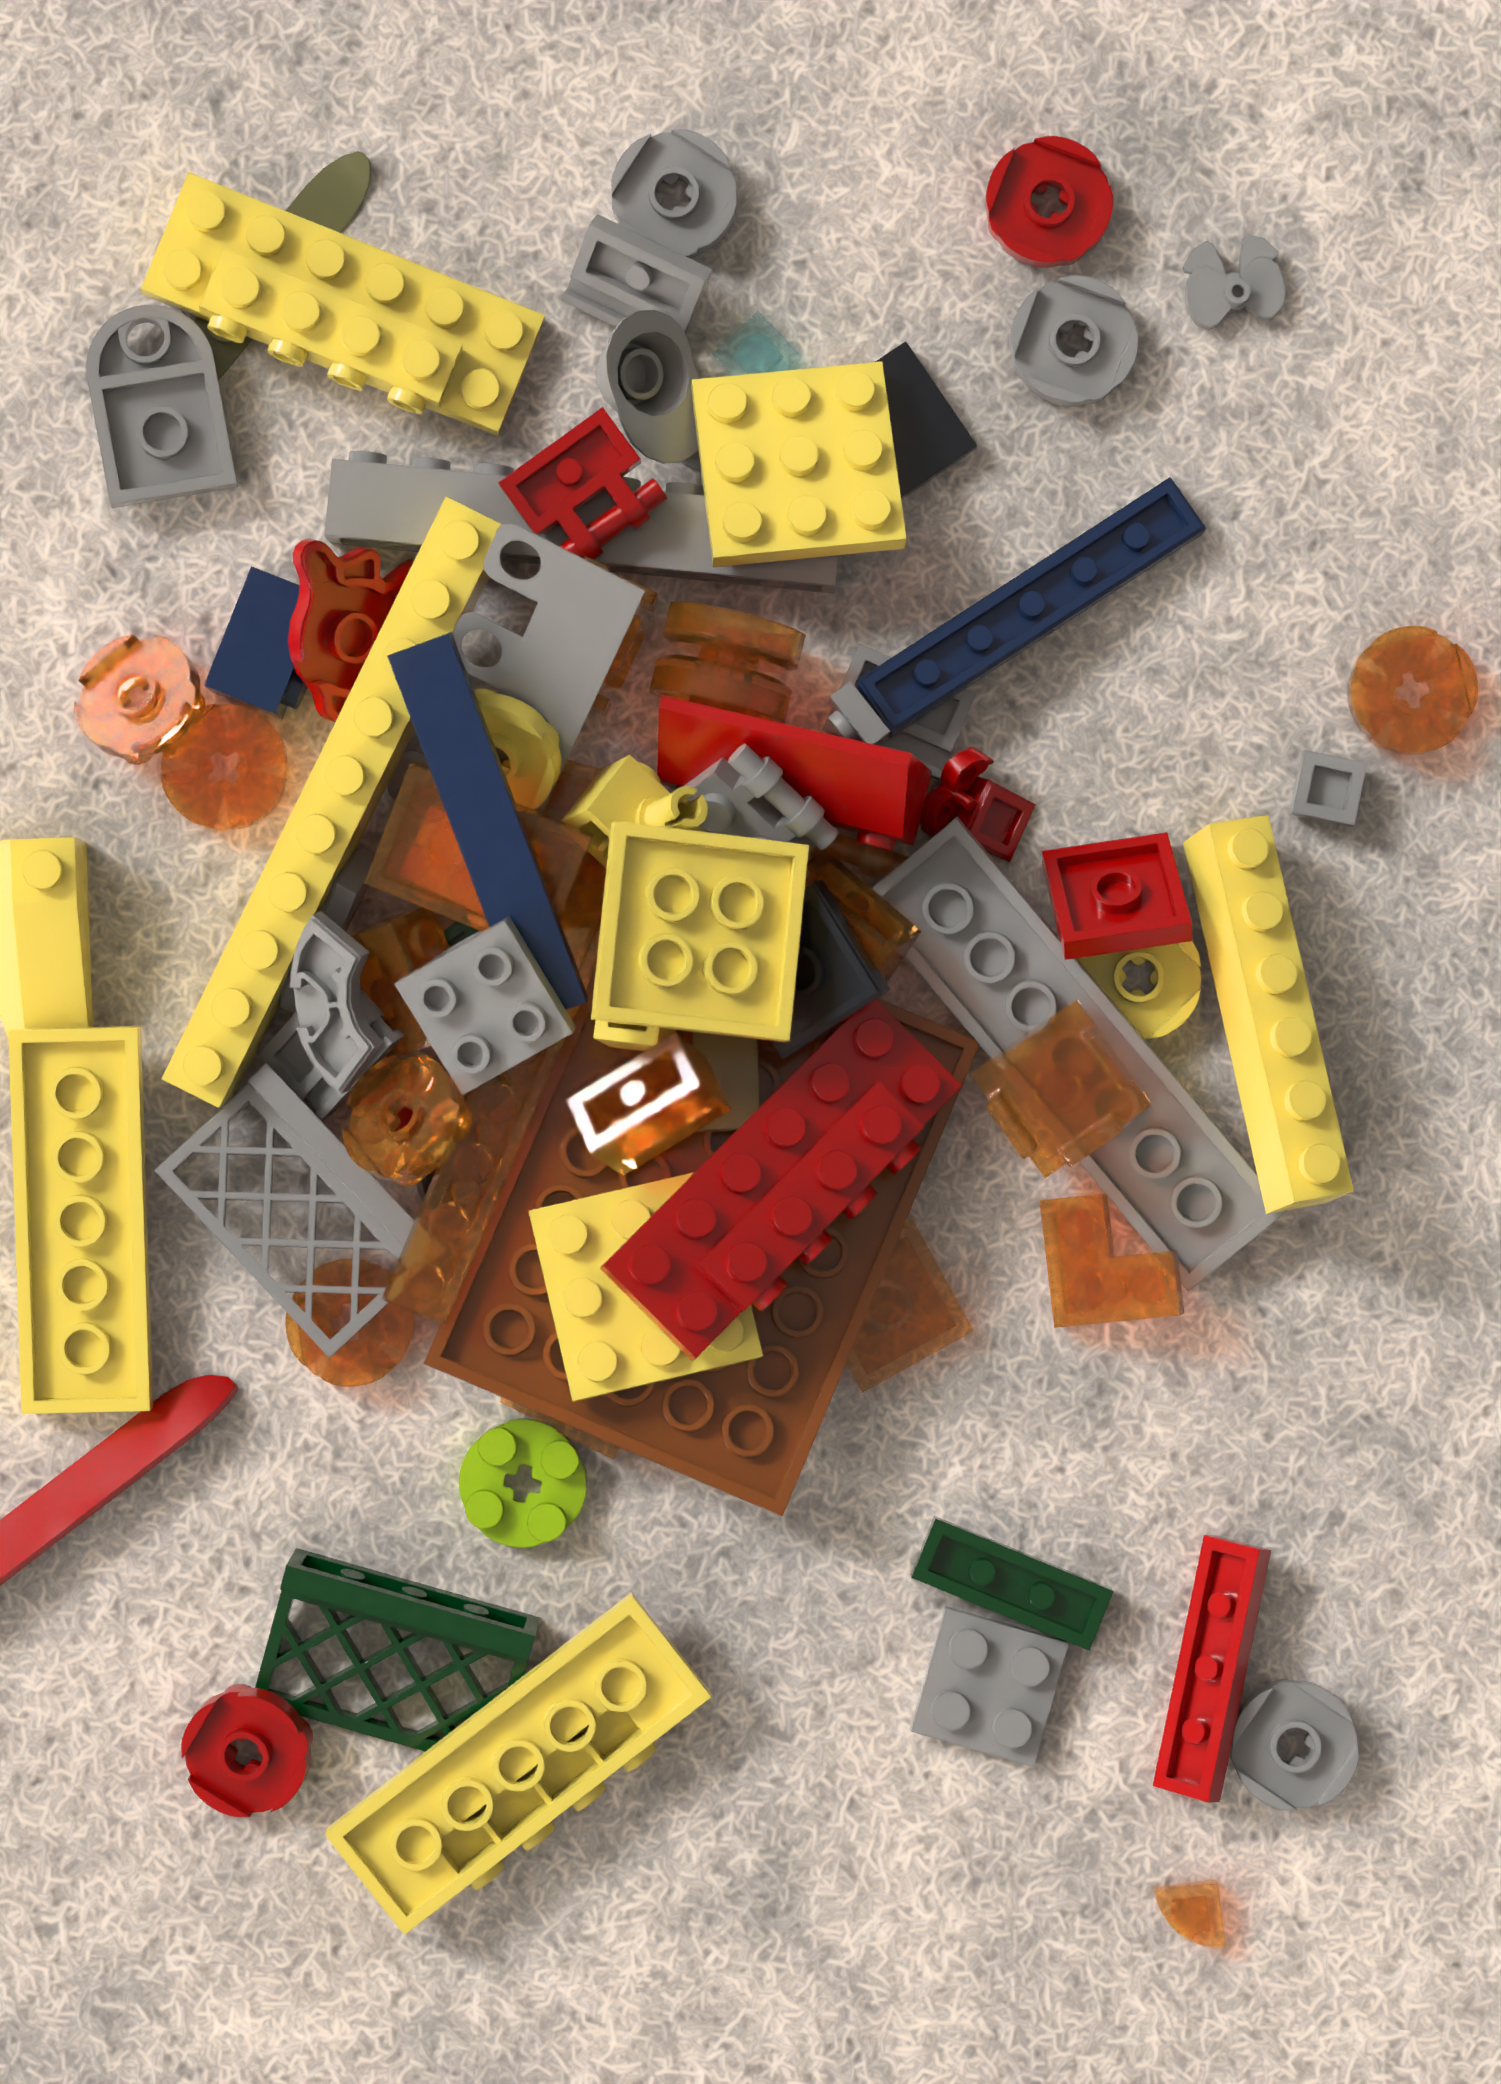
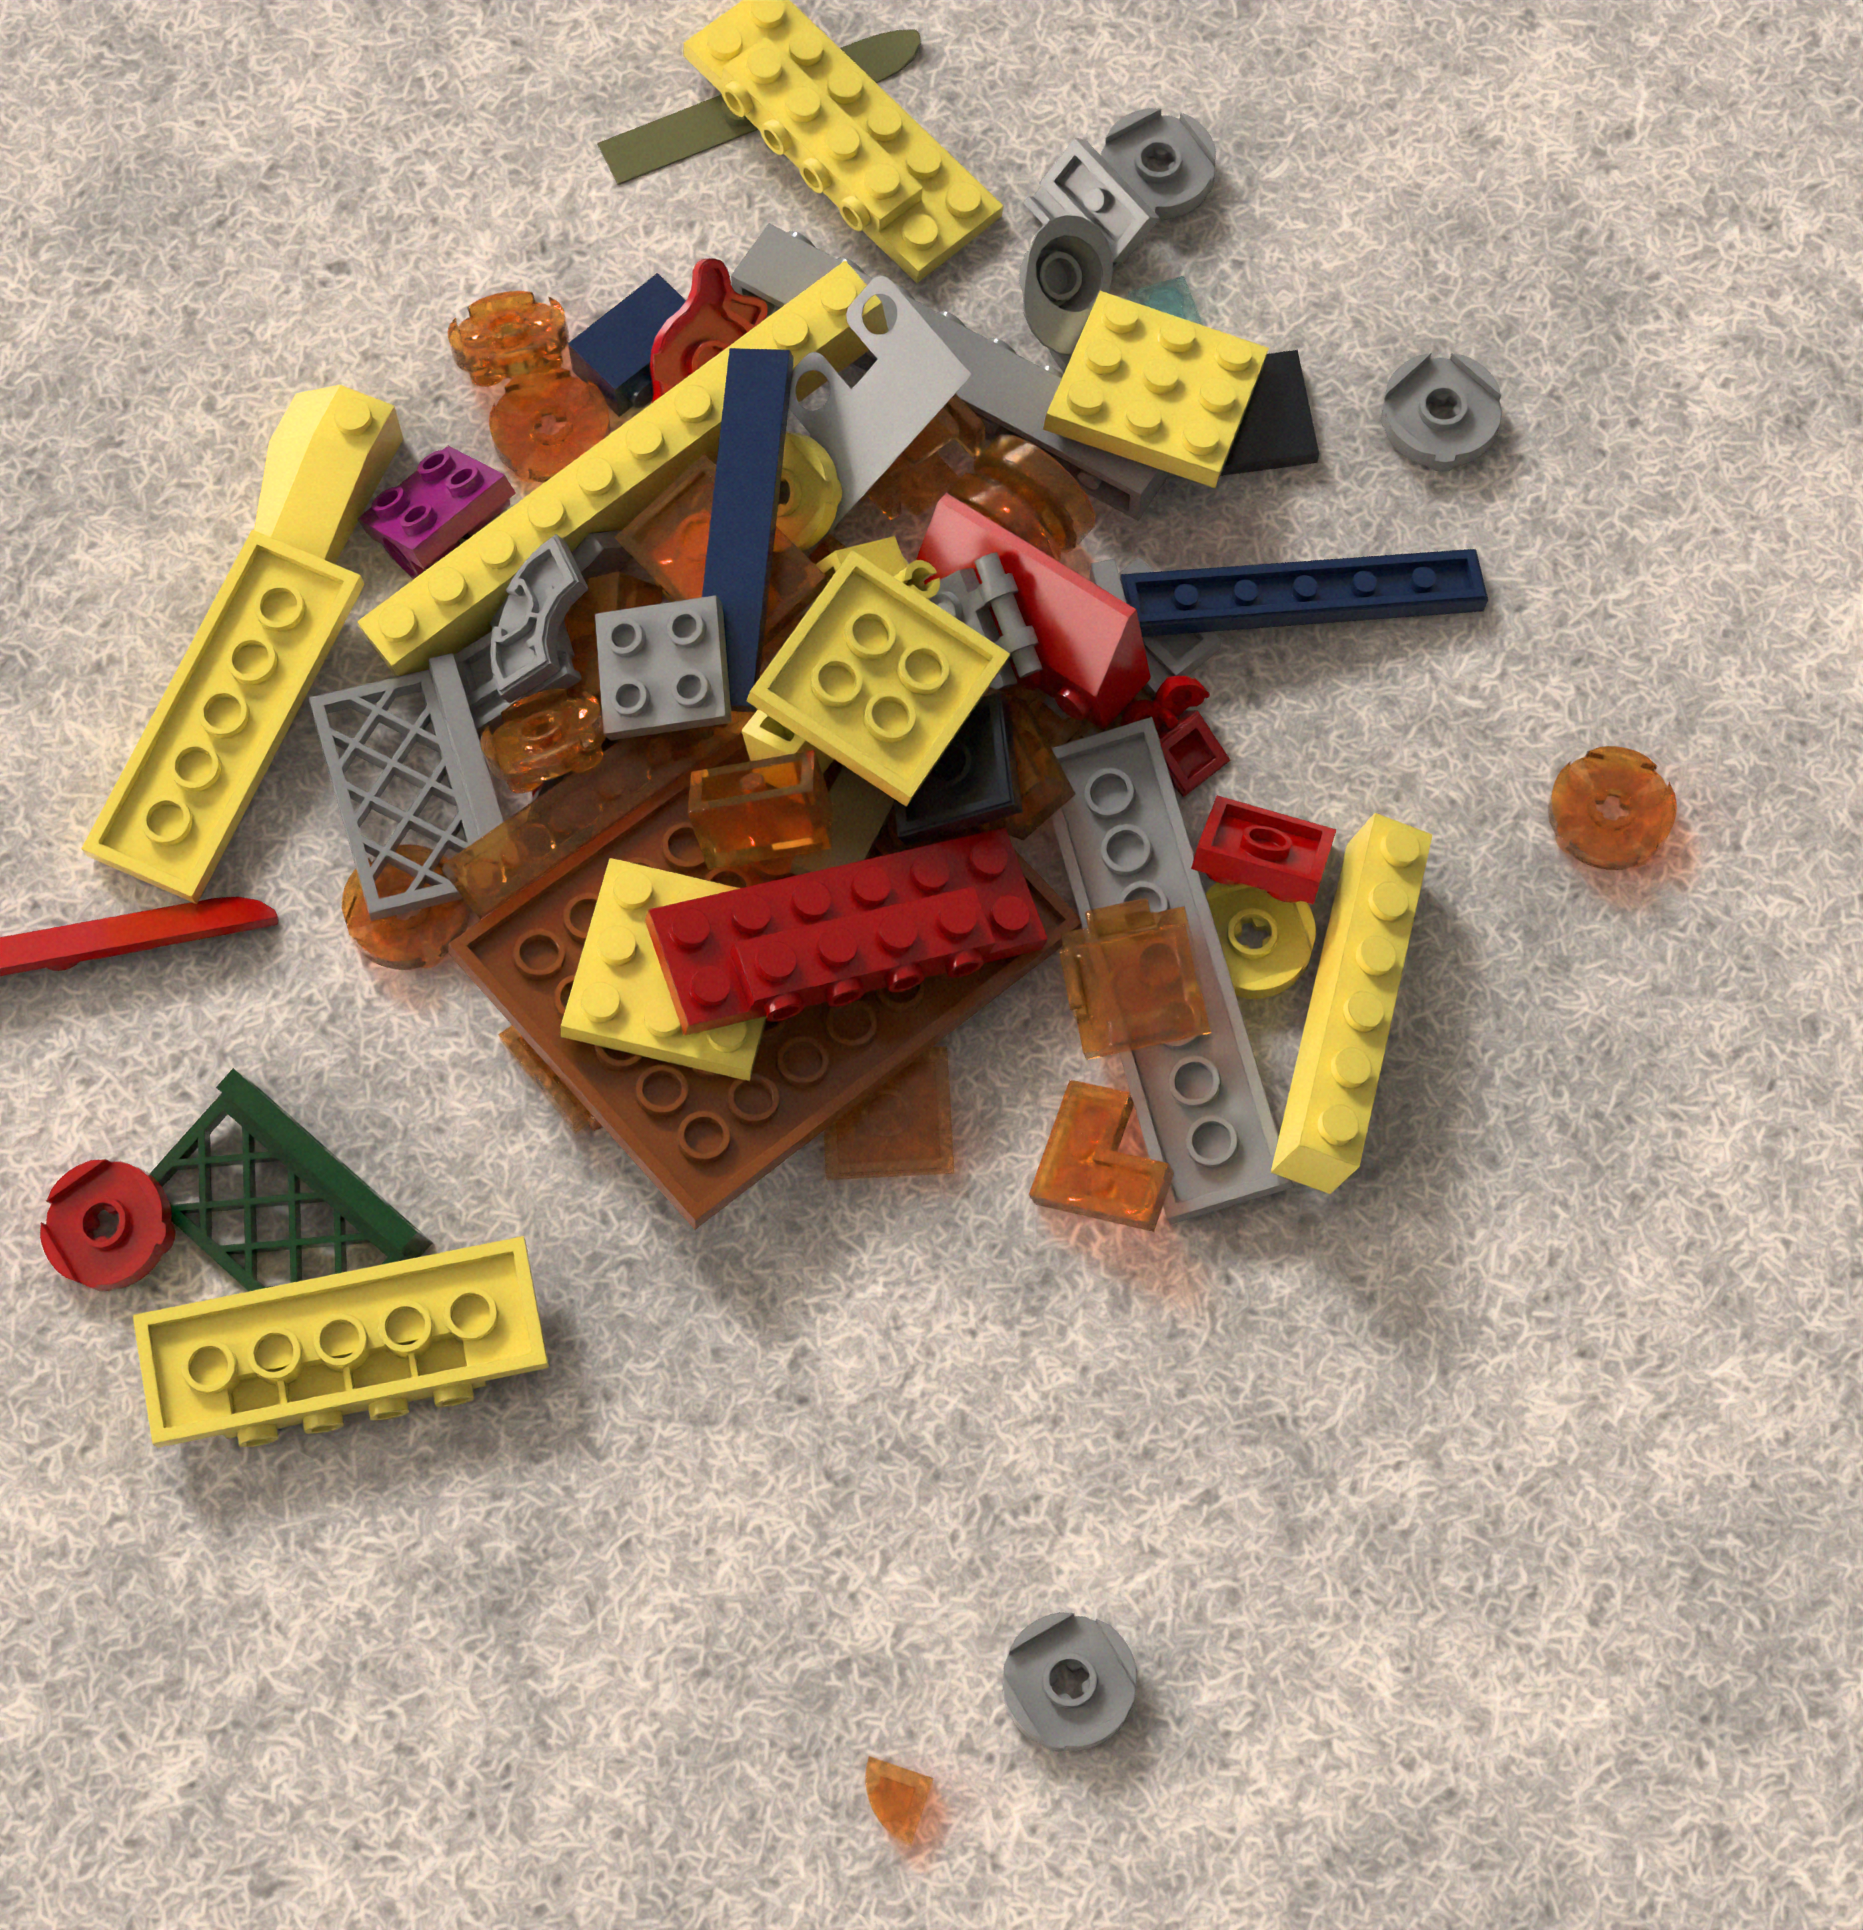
camera: 30 degrees right, 20 degrees down
(158, 413) = (647, 145): light grey plate -> none
(165, 913) = (436, 507): none -> magenta plate
(553, 1462) = (484, 1148): lime plate -> none
(574, 472) = (975, 306): red plate -> none
(989, 1686) = (808, 1493): light grey plate -> none
(1011, 1583) = (876, 1405): dark green plate -> none
(1030, 170) = (1466, 328): red plate -> none
(1211, 1668) = (1024, 1570): red plate -> none
(1213, 294) = (1620, 438): light grey piece -> none
(1328, 788) = (1498, 854): light grey plate -> none

